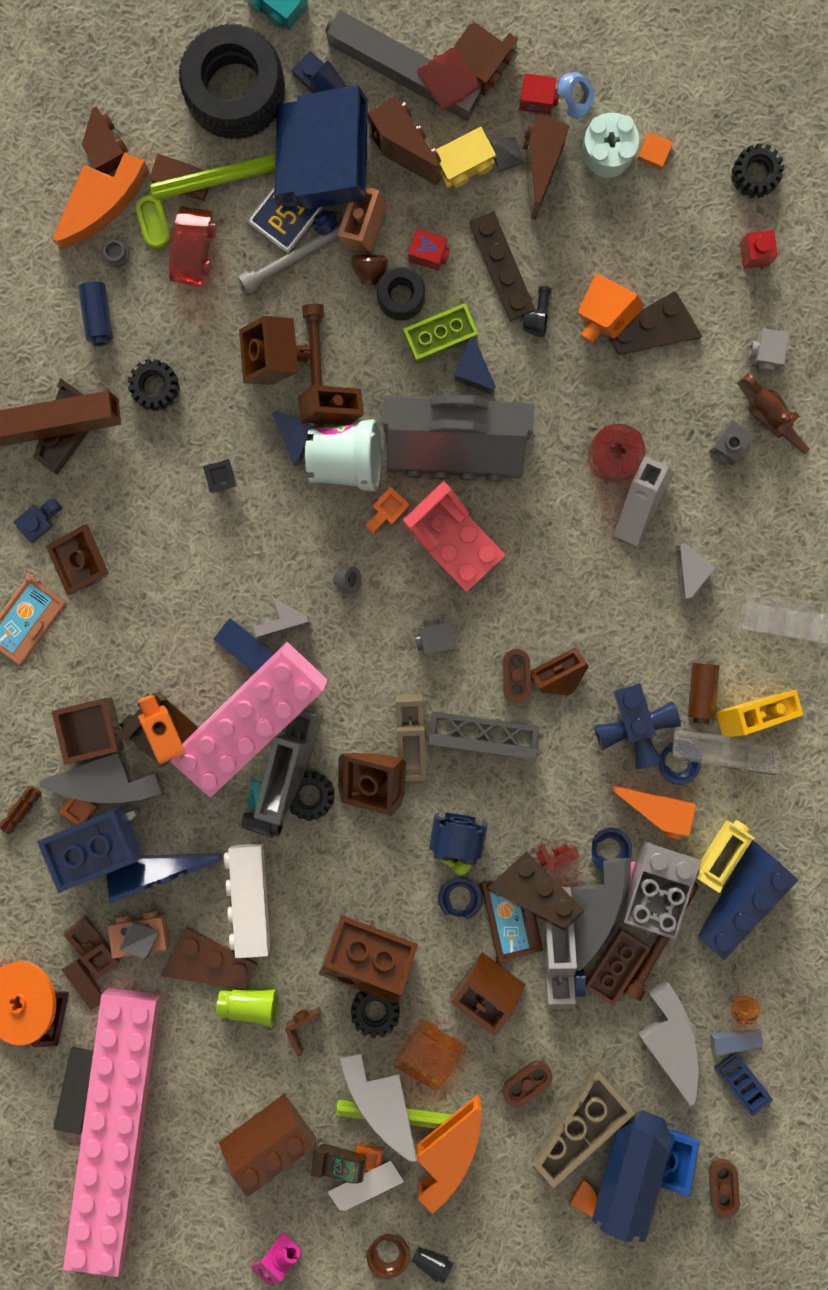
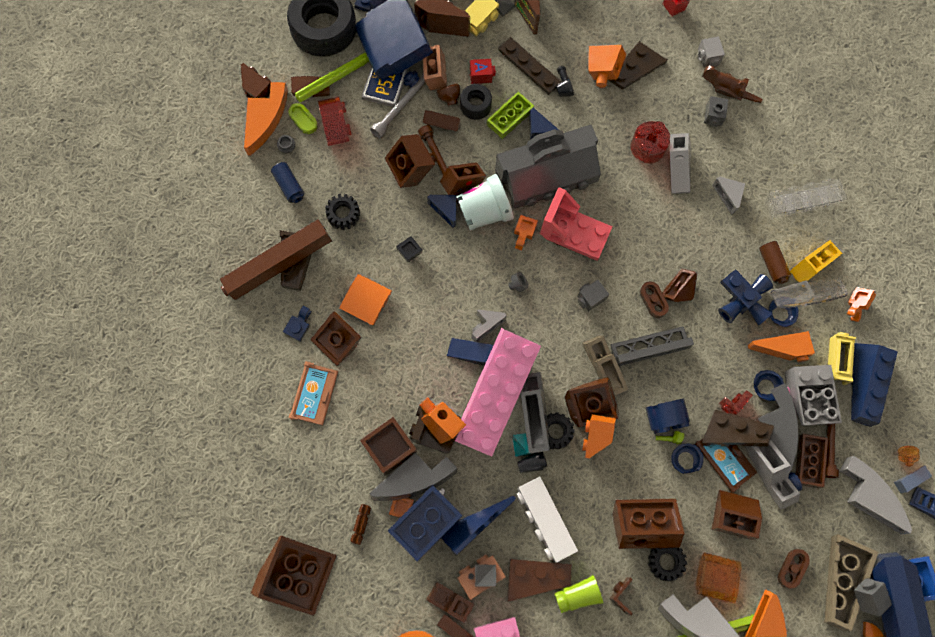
camera: 25 degrees left, 15 degrees down
(137, 521) = (365, 299): none -> orange slope
(339, 307) = (441, 120): none -> reddish brown slope
(359, 826) = (600, 434): none -> orange slope
(596, 1164) = (872, 597): none -> dark grey brick
(790, 789) = (860, 300): none -> orange plate

